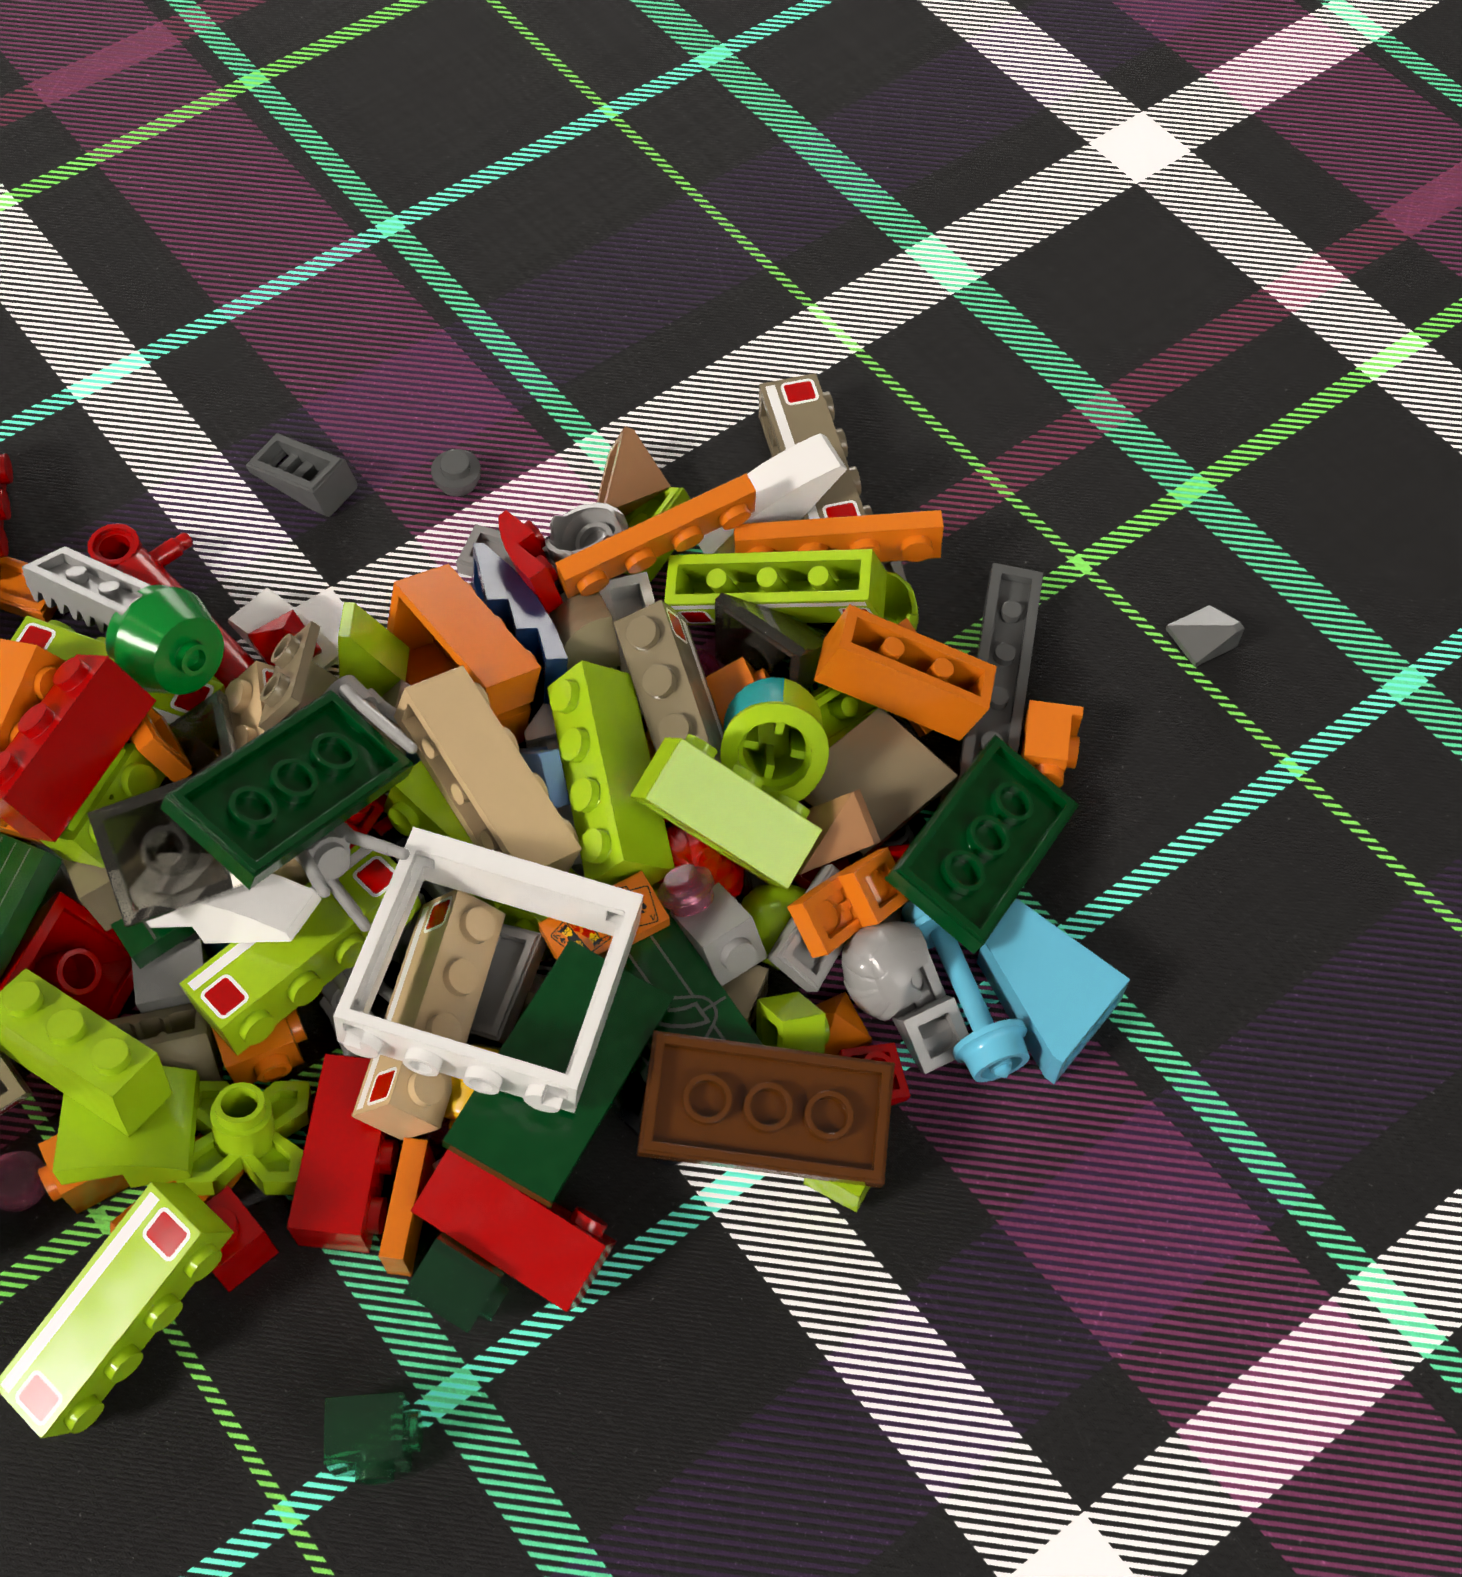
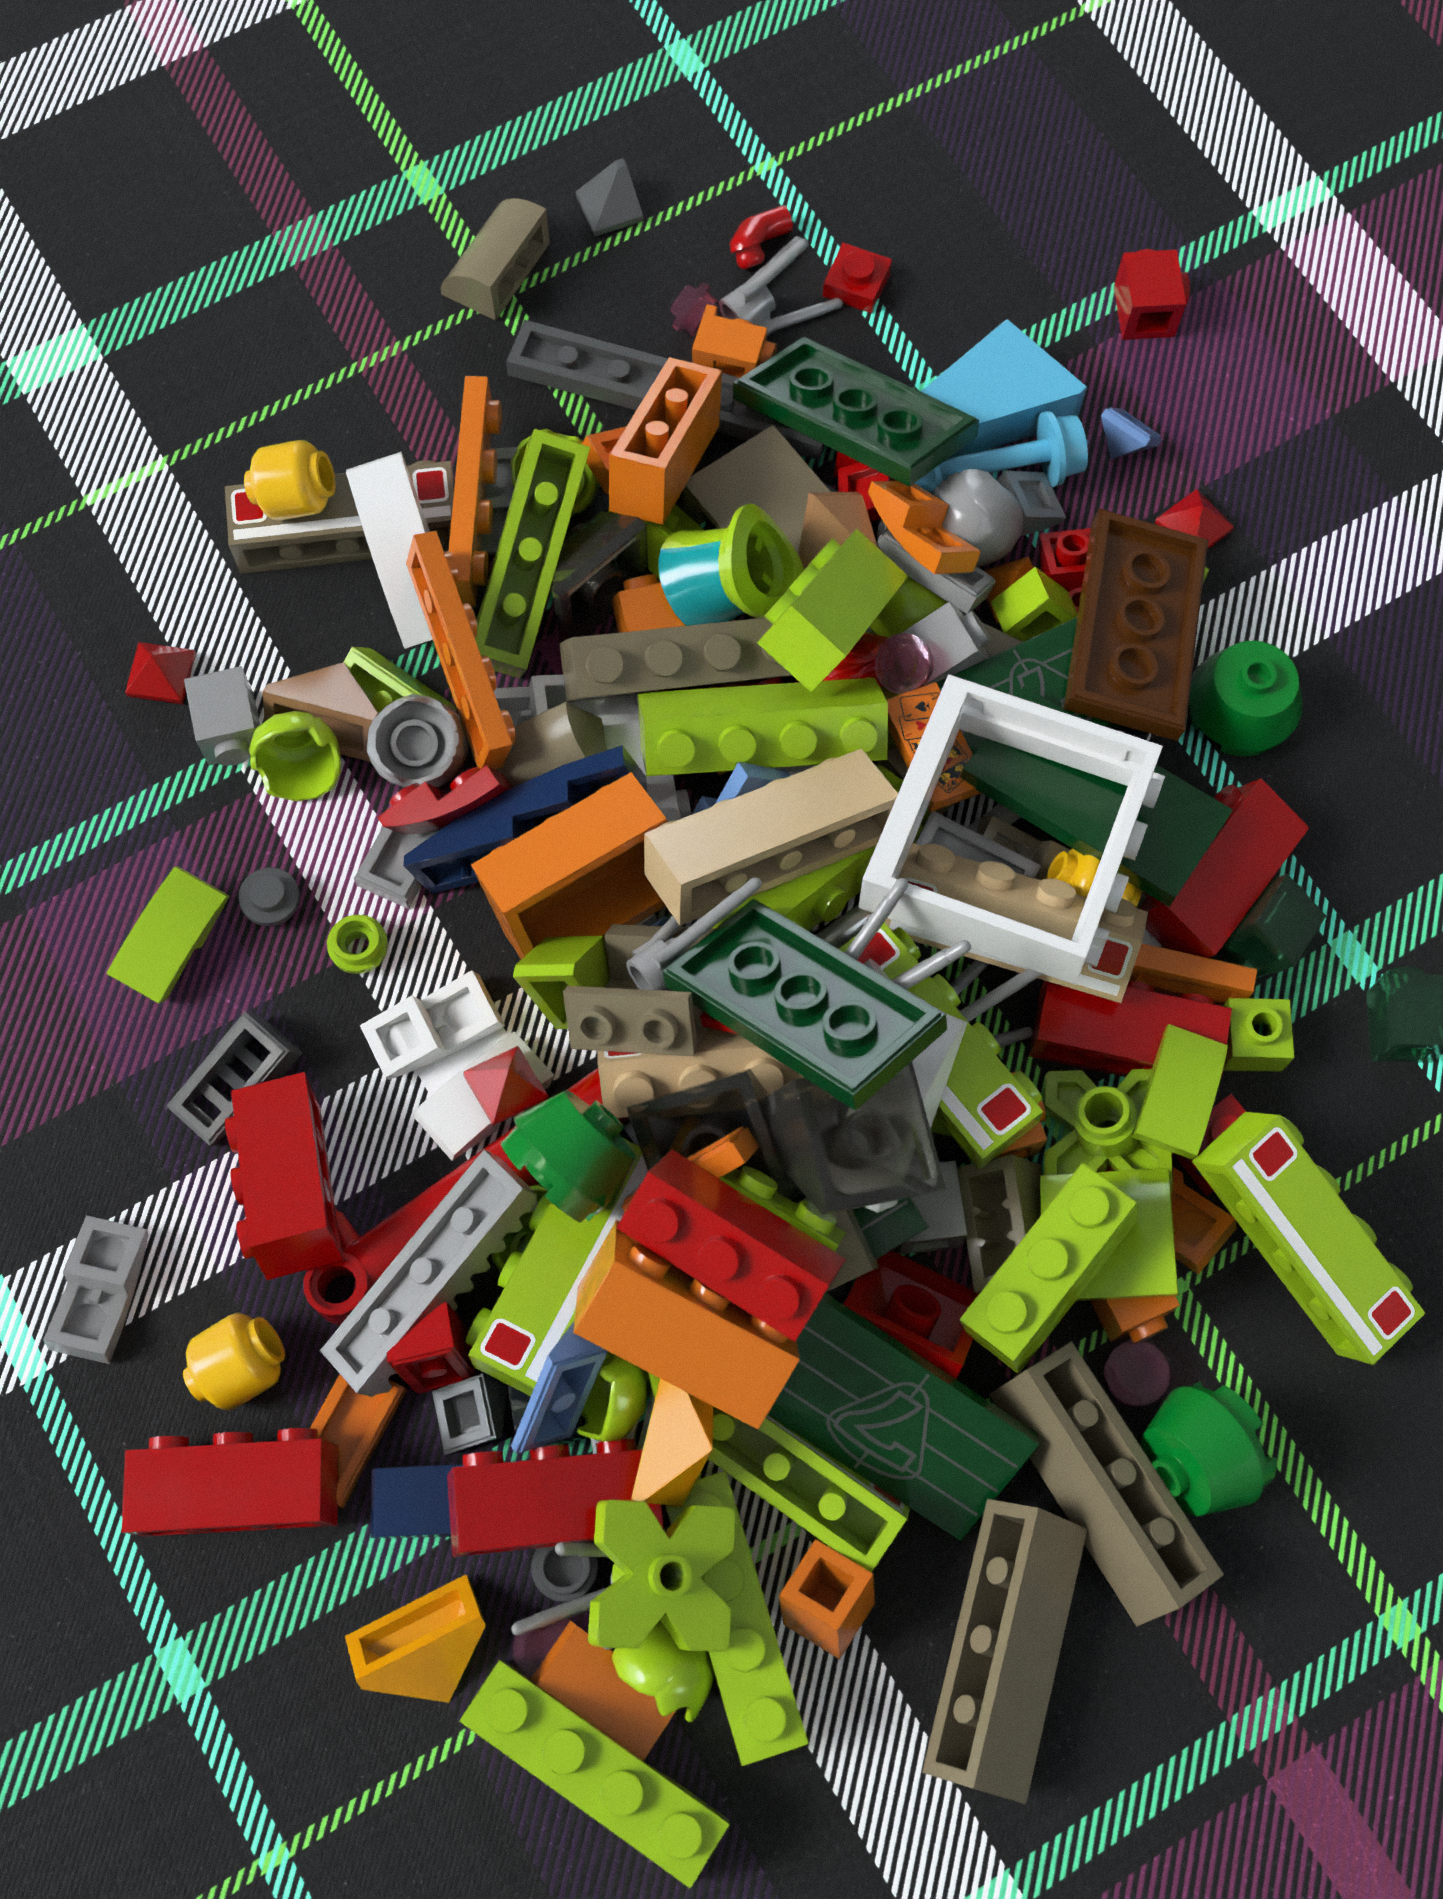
camera: 85 degrees left, 10 degrees up
(48, 598) = (433, 1352): none -> red slope
(65, 498) = (233, 1361): none -> yellow head
(140, 417) = (98, 1289): none -> light grey slope
(201, 500) = (282, 1177): none -> red brick
(263, 1176) = (1181, 1092): none -> lime slope
(340, 579) = (433, 1027): none -> white slope
(362, 1292) = (1253, 1051): none -> lime plate
(416, 524) = (353, 928): none -> lime plate
(418, 406) = (167, 934): none -> lime slope
(581, 466) = (296, 756): none -> lime hair
(605, 410) = (223, 715): none -> light grey brick
(655, 375) = (160, 673): none -> red slope
(727, 1259) = (1246, 698): none -> green cone
(814, 403) = (290, 480): none -> yellow head
(940, 1207) = (1196, 517): none -> red slope
(1038, 1127) = (1126, 433): none -> medium blue slope
(1097, 709) = (691, 306): none -> clear pink plate
(1111, 551) = (499, 257): none -> dark tan brick
(1111, 759) = (755, 302): none -> light grey plant
(1172, 856) = (857, 277): none -> red plate
(1200, 756) = (756, 230): none -> red arm
(1214, 1137) = (1150, 294): none -> red brick

